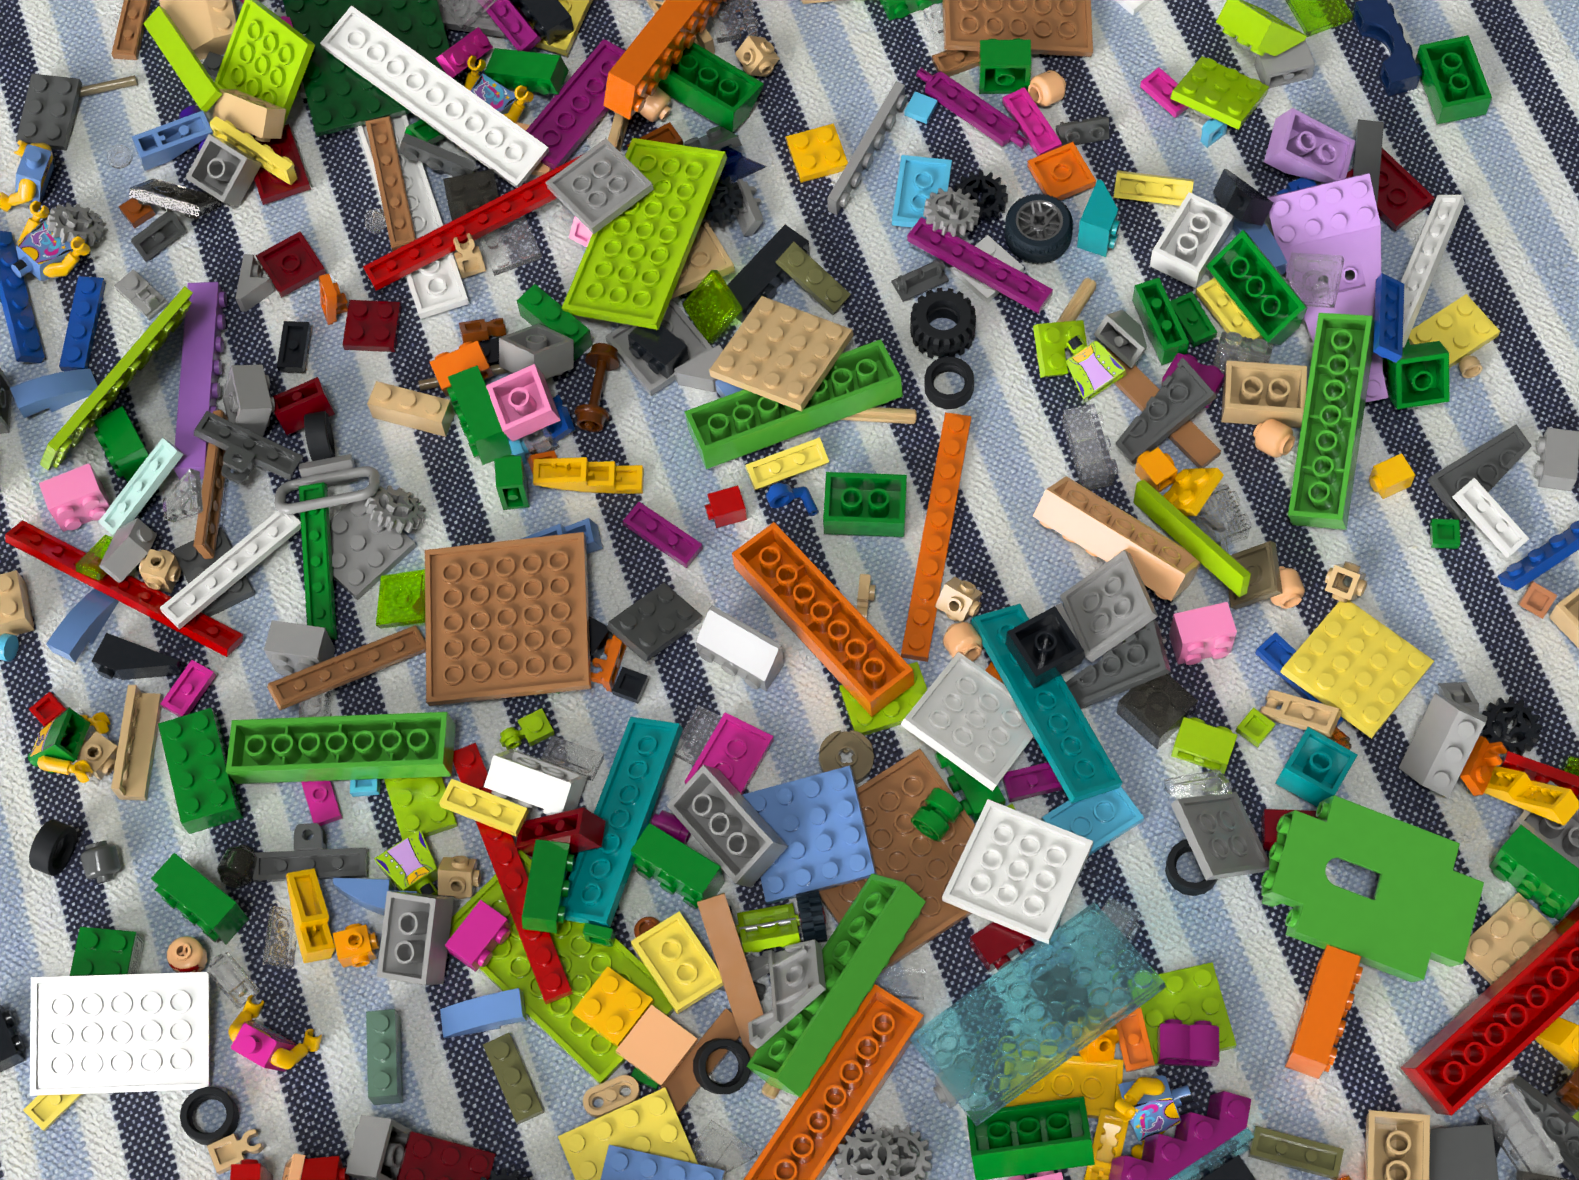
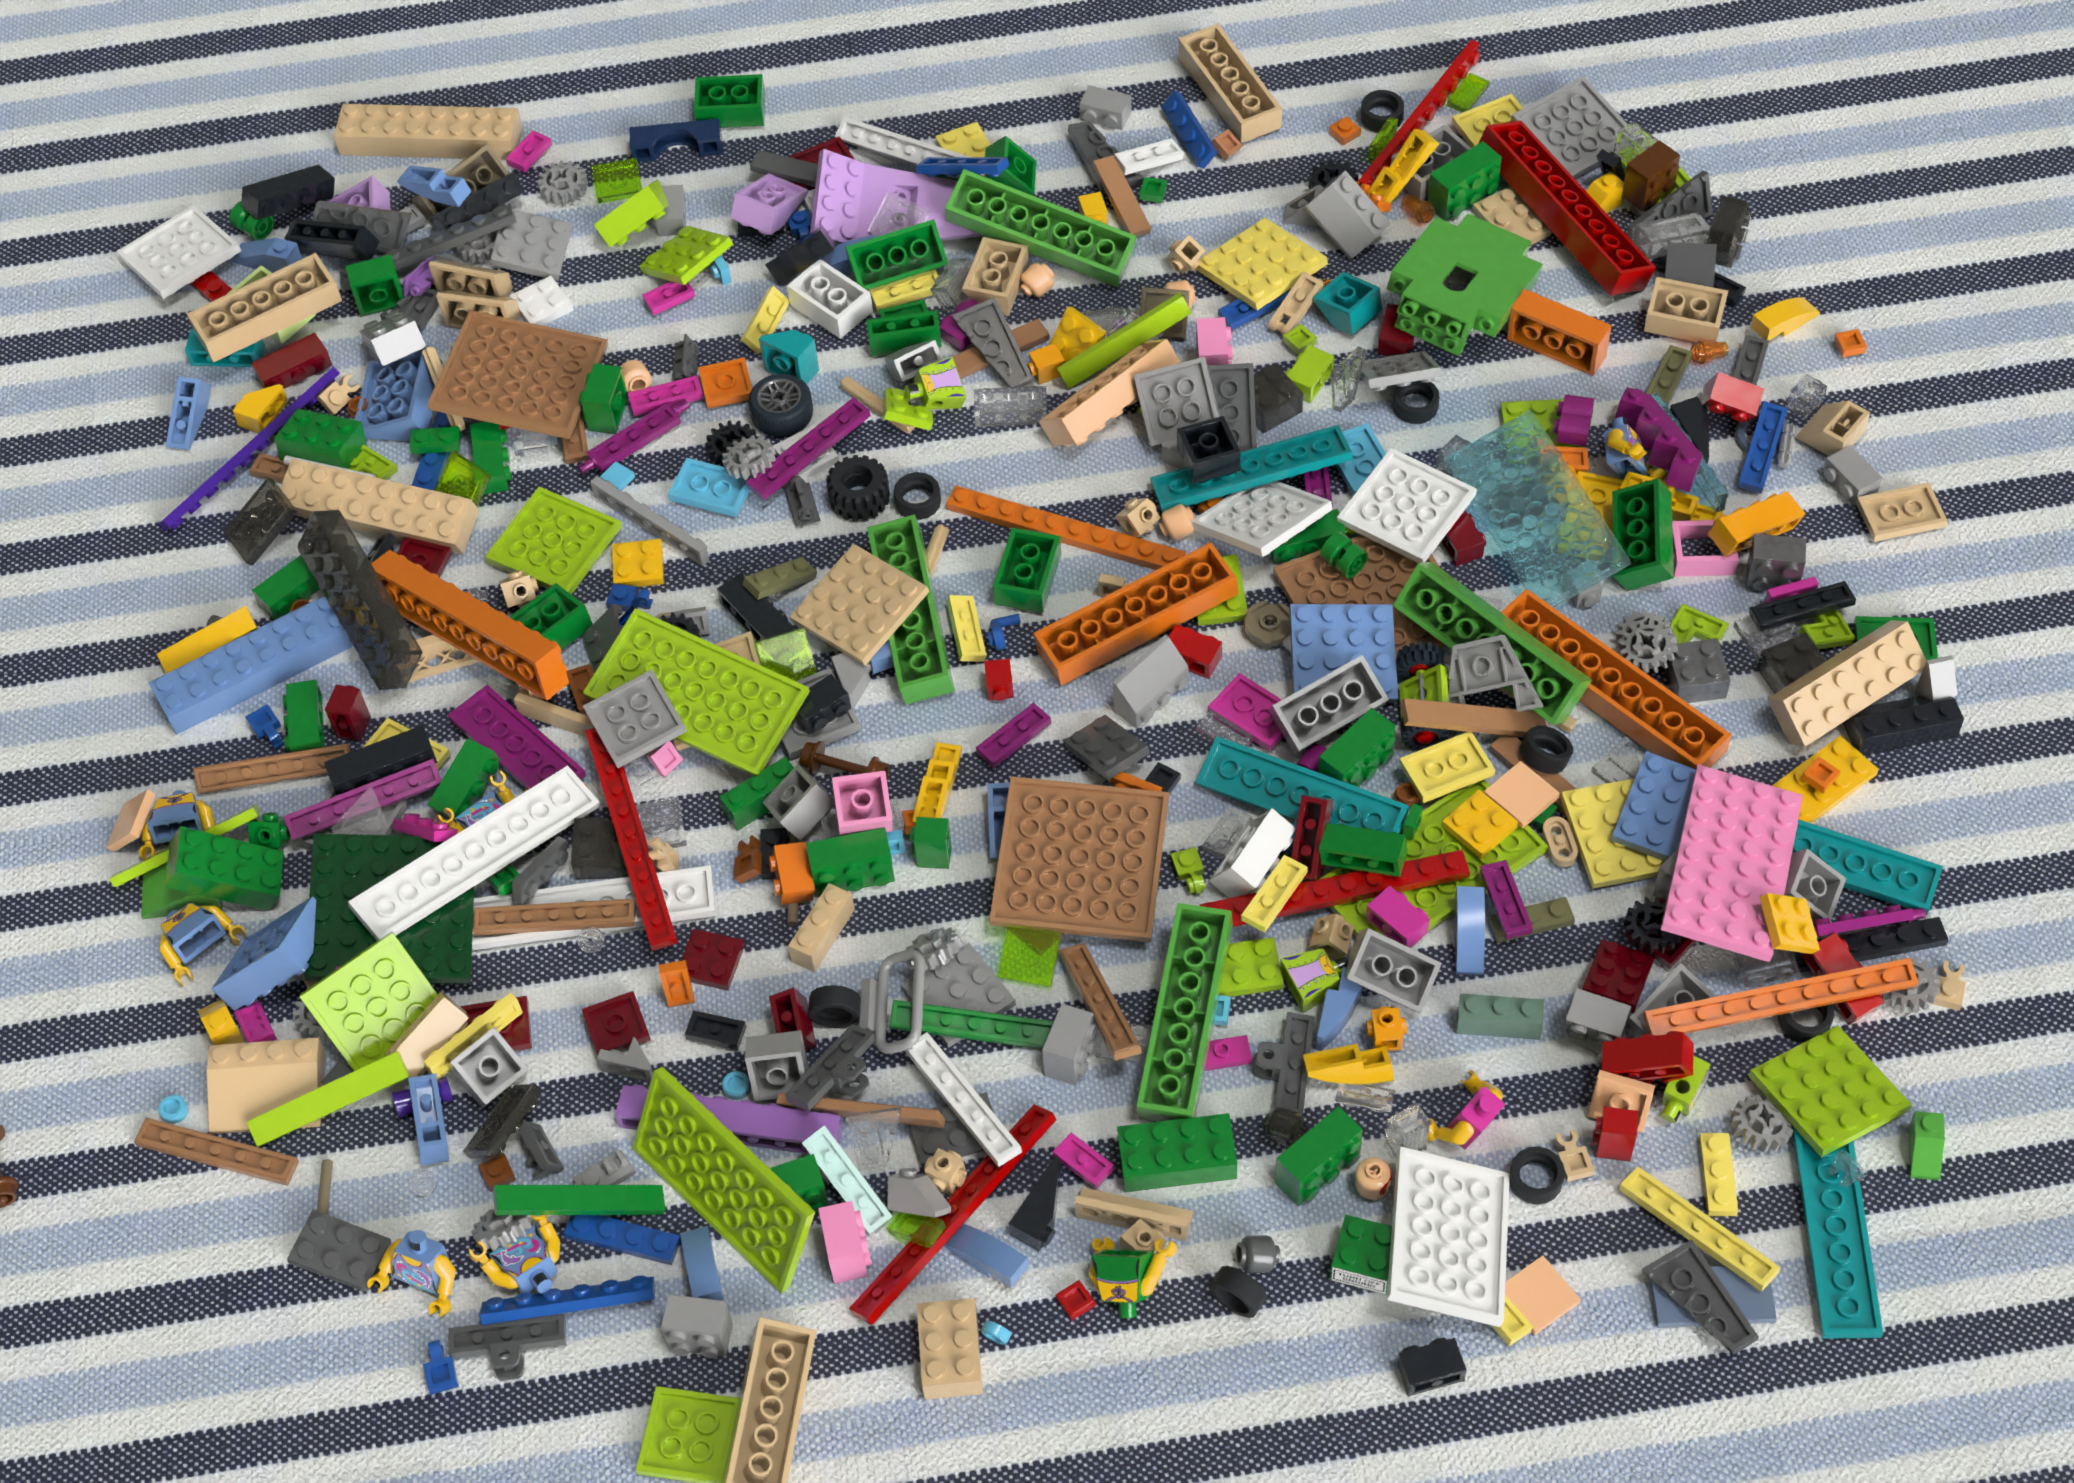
camera: 80 degrees left, 10 degrees down
(83, 1134) = (1540, 1294): none -> light nougat tile
(94, 274) = (579, 1200): none -> green tile
(518, 1043) = (1506, 899): none -> magenta plate
(772, 152) = (627, 596): none -> blue plate
(795, 685) = (1198, 650): none -> red brick
(826, 73) = (554, 540): none -> lime plate
(1419, 500) = (1121, 196): none -> medium nougat tile
(1492, 832) = (1420, 209): none -> clear orange cone

